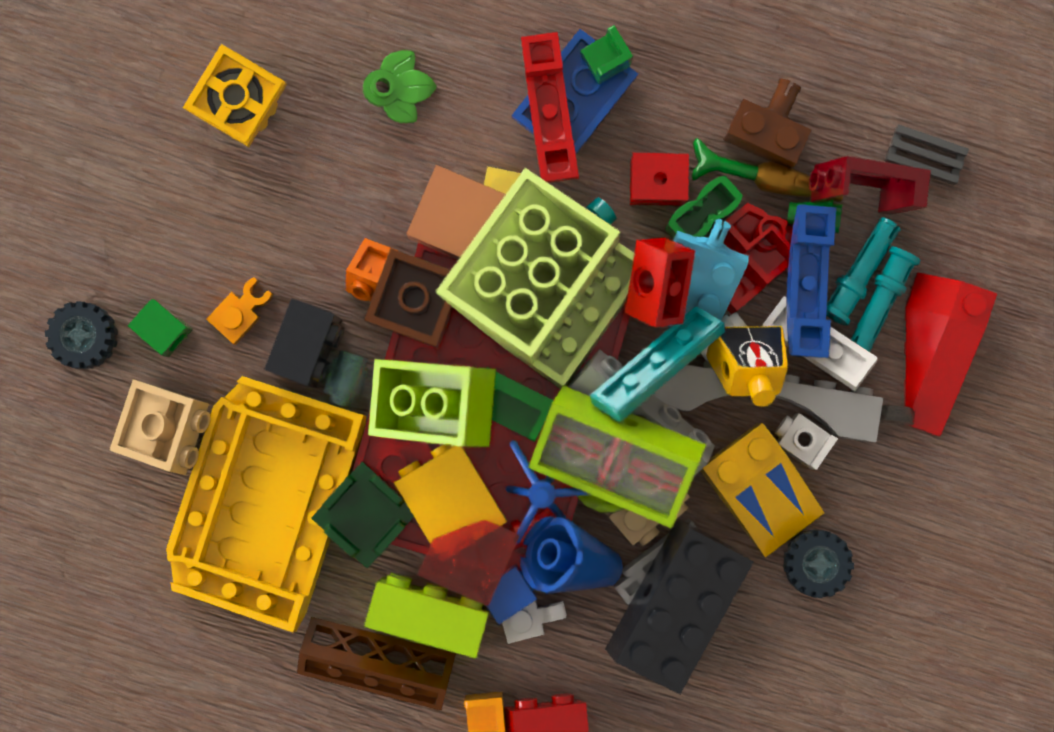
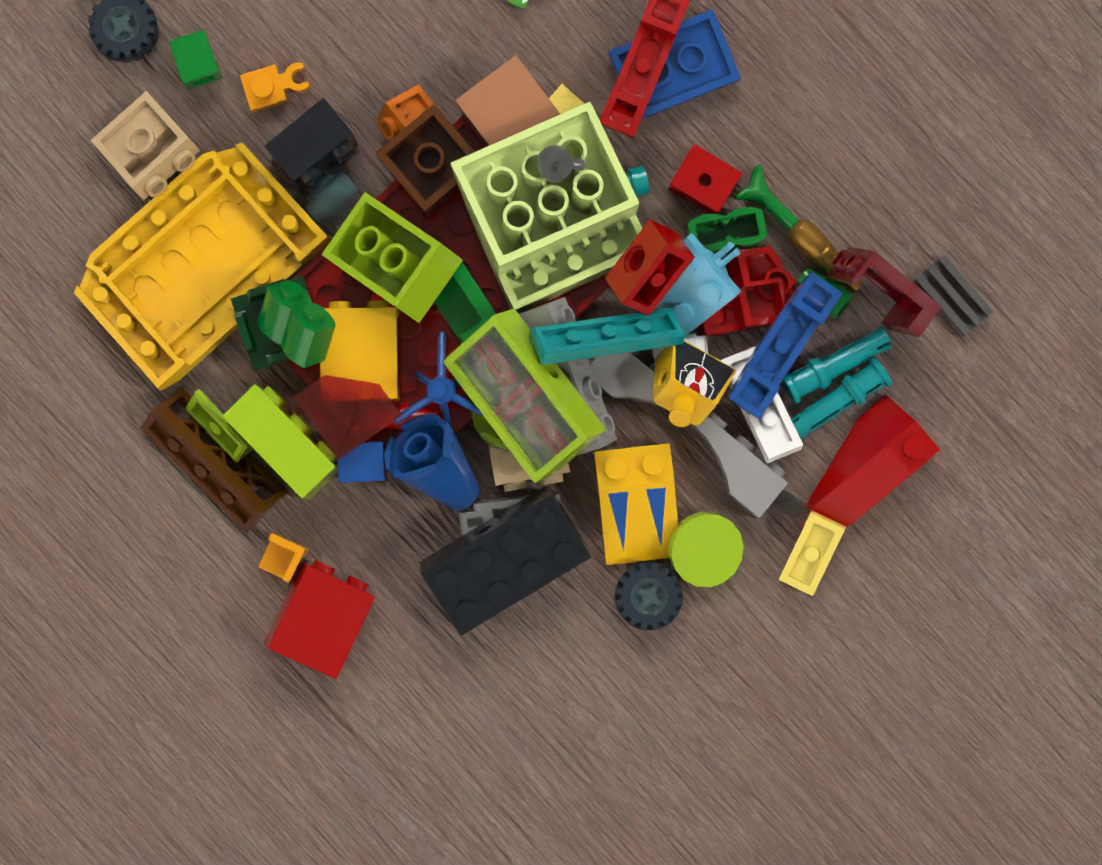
camera: 30 degrees right, 0 degrees up
(352, 629) = (213, 422): none -> lime slope
(382, 509) = (296, 323): none -> green brick
(529, 620) = (367, 498): white plate -> none
(530, 238) = (557, 163): none -> dark grey piece
(607, 55) = (721, 47): green panel -> none
(769, 130) = (826, 193): reddish brown brick -> none
(812, 454) = (698, 496): white brick -> none
(844, 495) = (705, 549): none -> lime tile
(937, 445) = (812, 553): none -> light yellow plate

